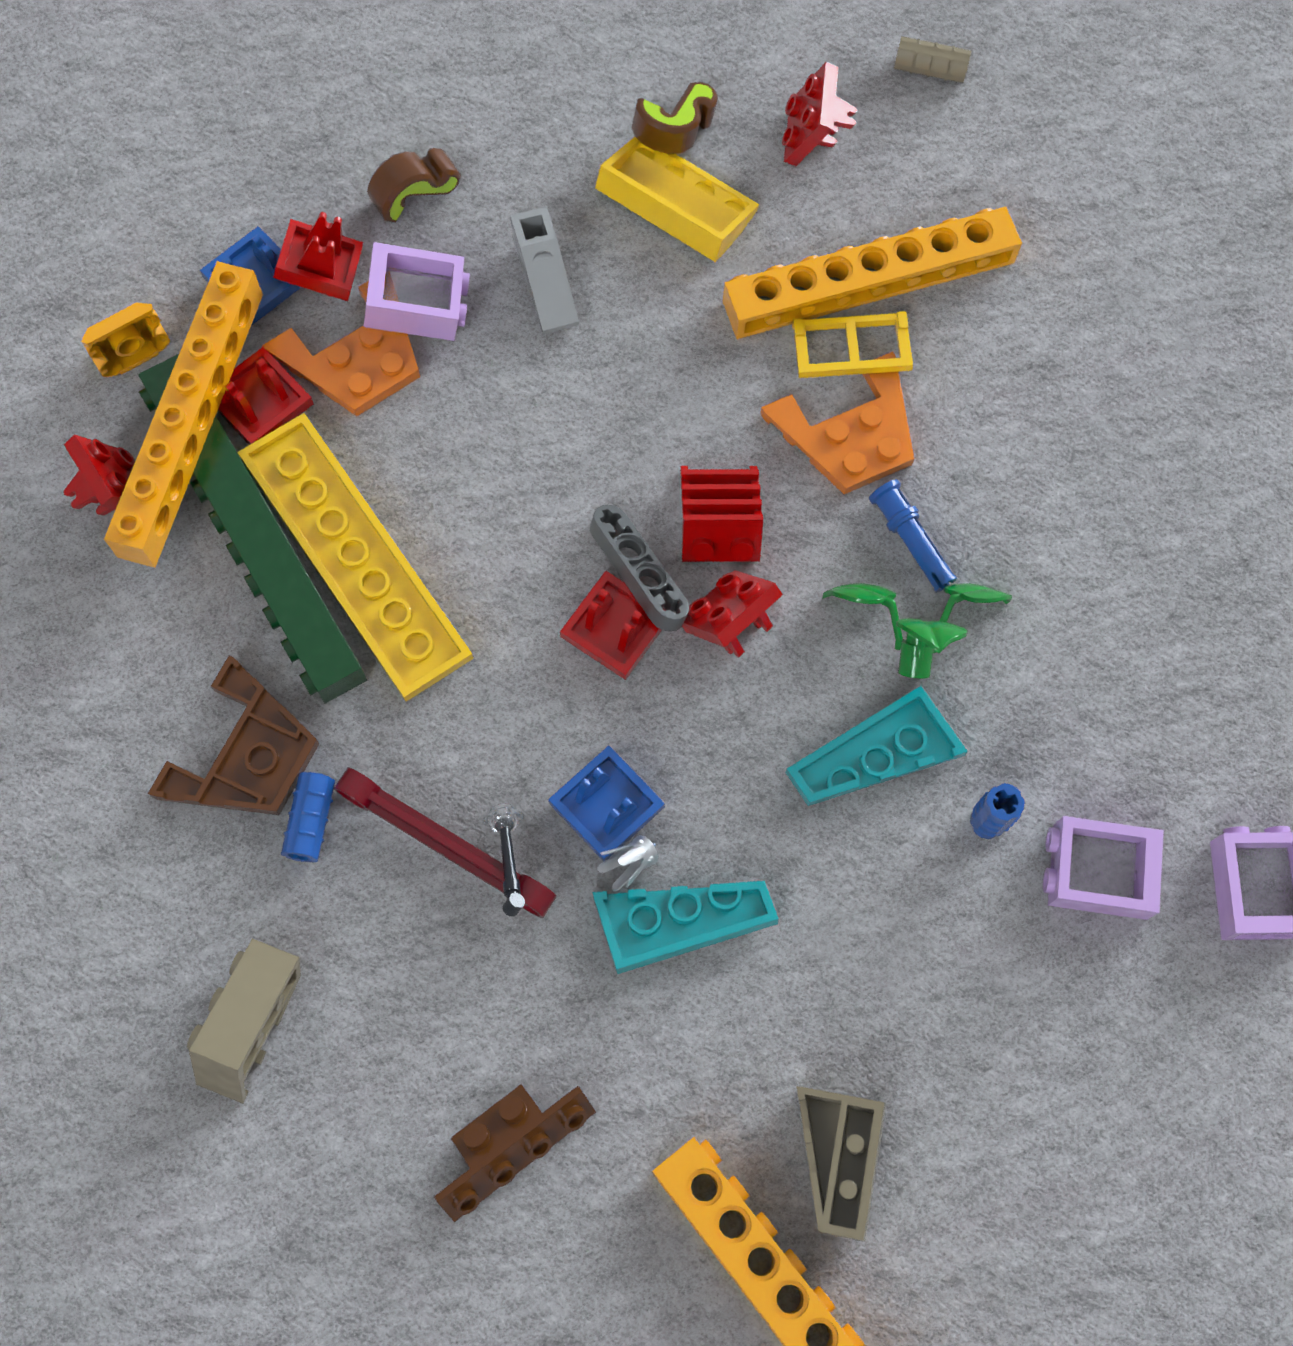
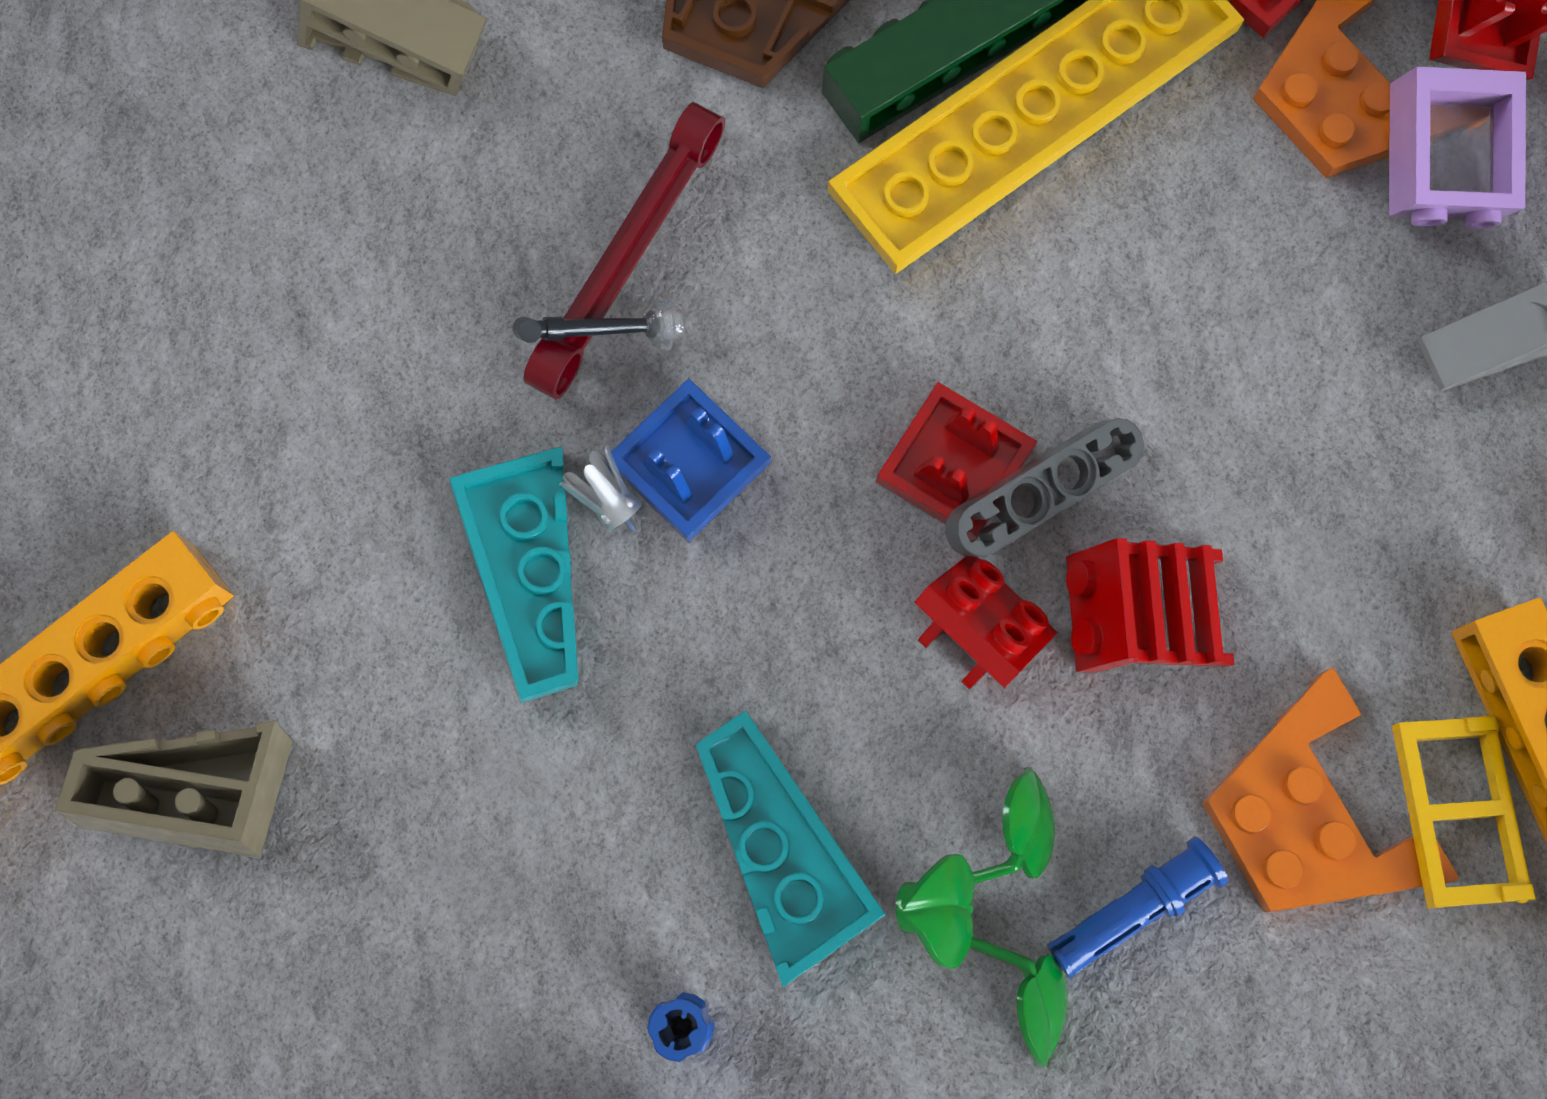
camera: 90 degrees right, 5 degrees up
(308, 817) = (655, 77): blue axle -> none
(506, 1142) = (231, 352): reddish brown bracket -> none

